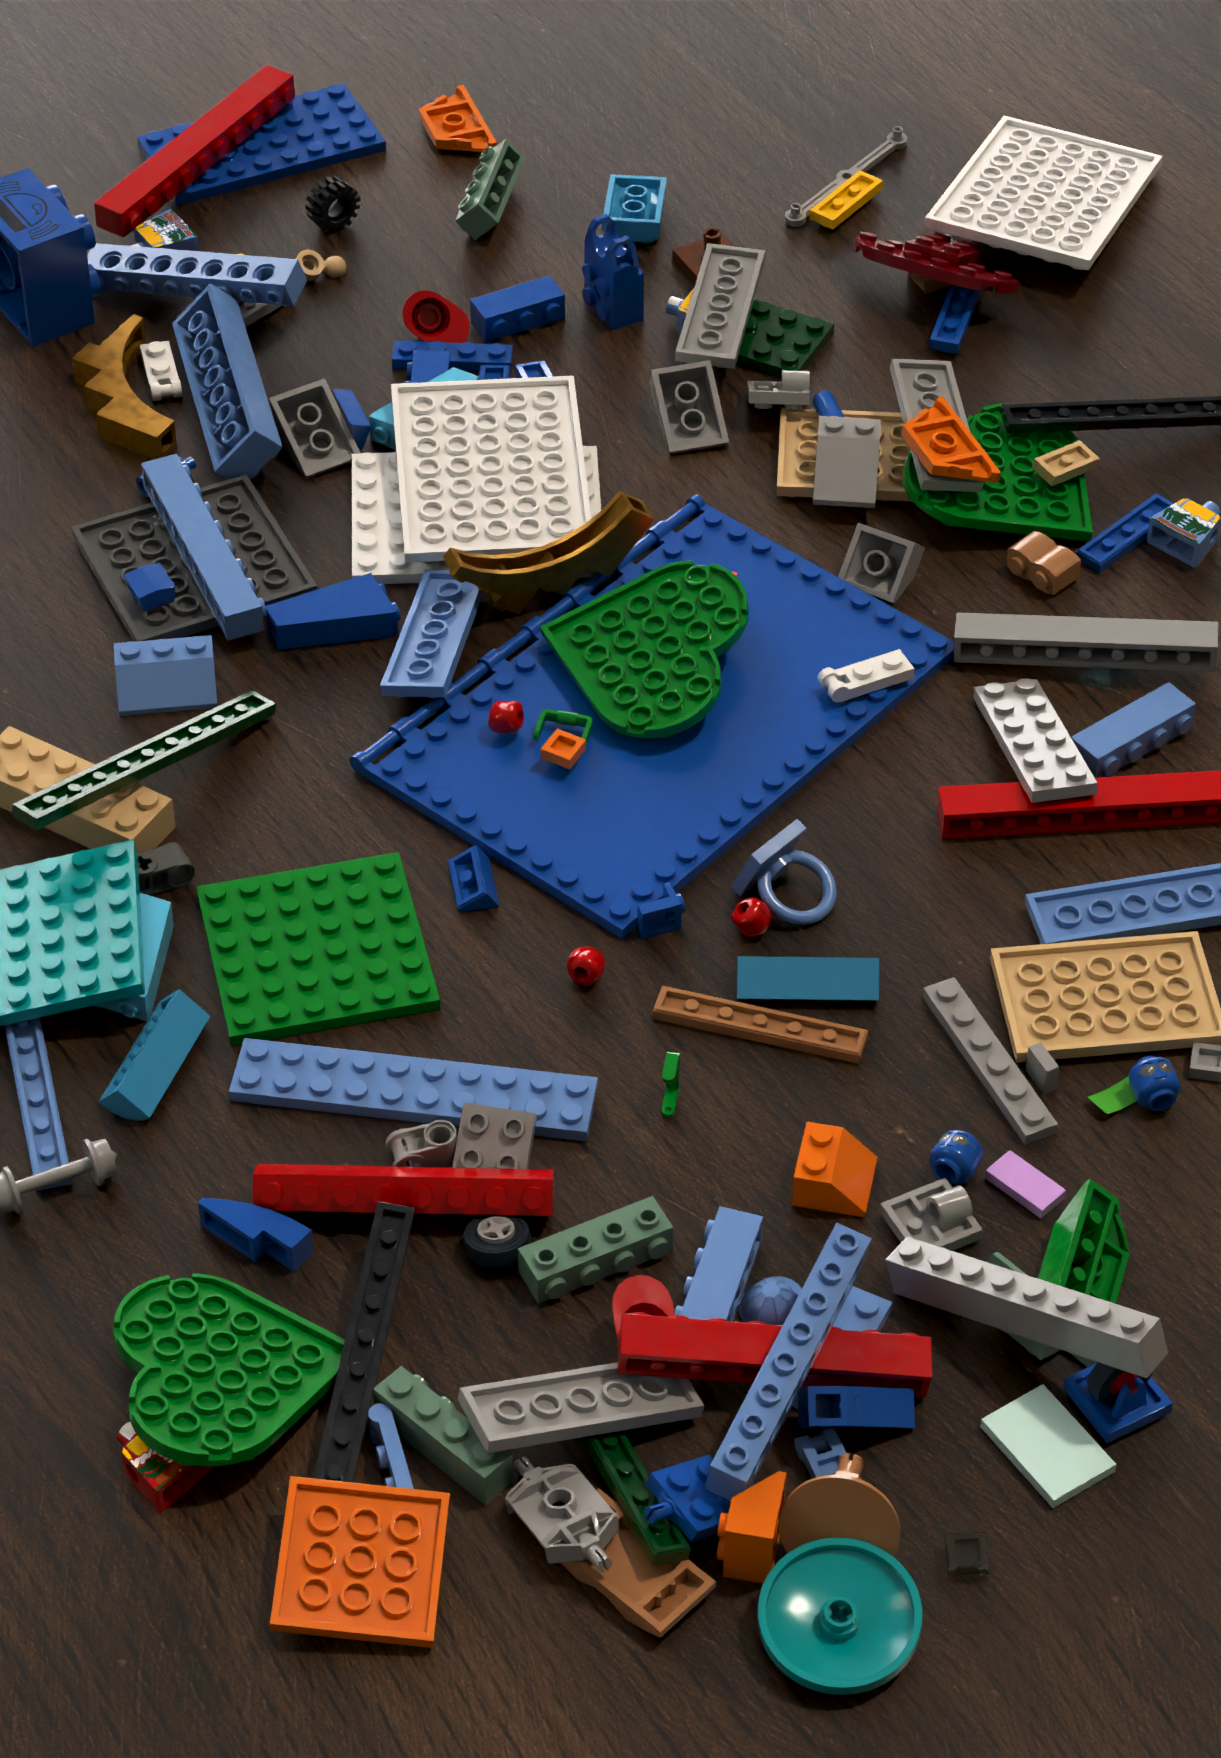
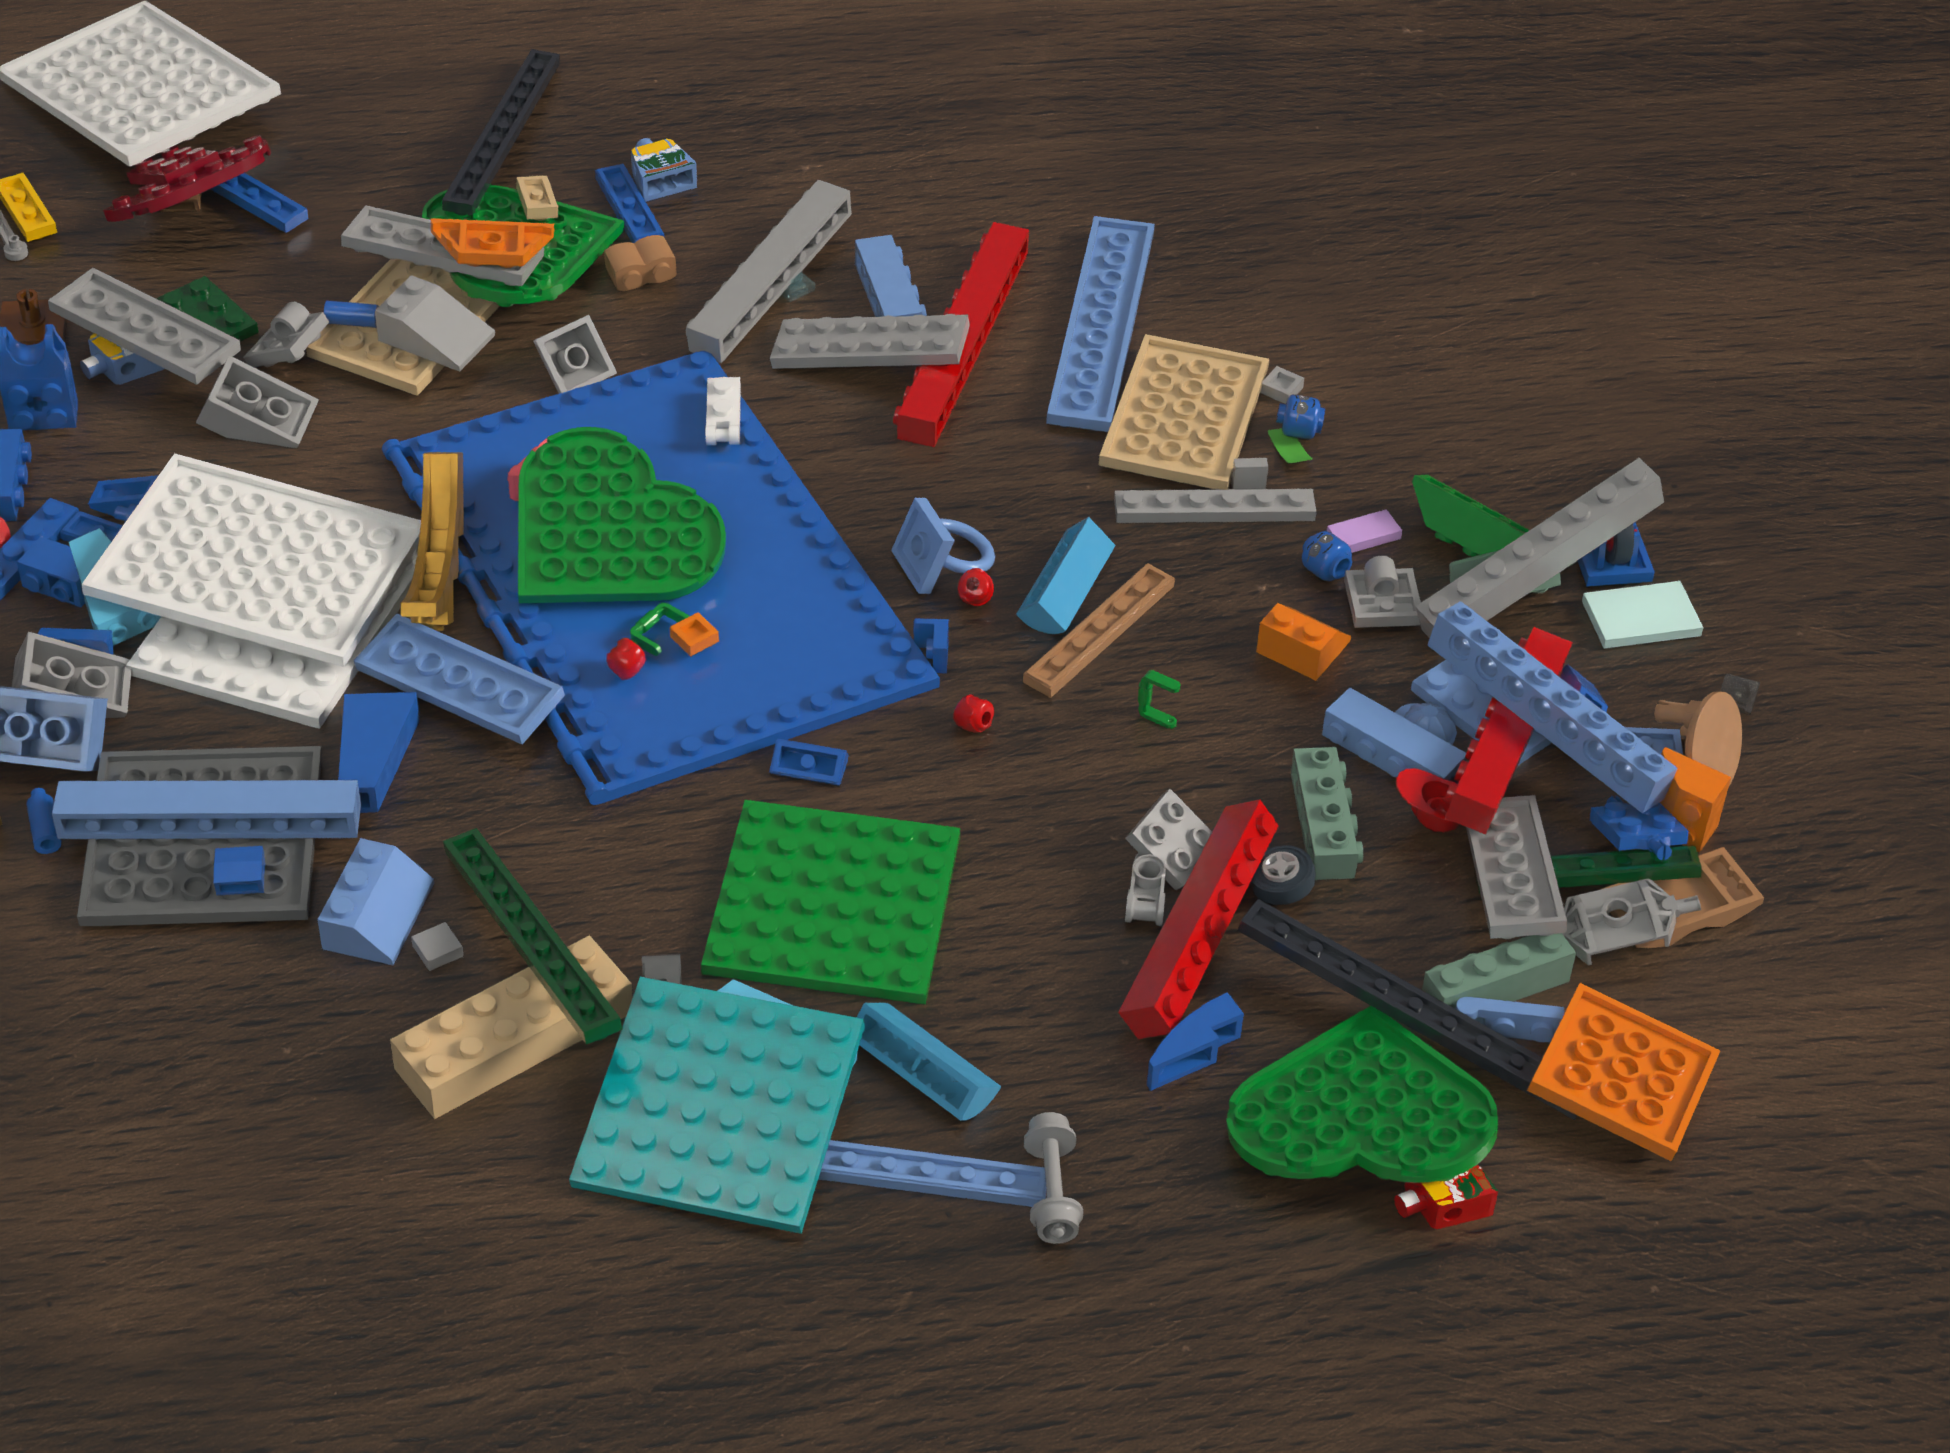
camera: 70 degrees left, 0 degrees up
(144, 727) = (437, 946): none -> light grey tile
(407, 1086) = (1052, 889): medium blue plate -> none
(839, 1616) = (1788, 782): teal dish -> none

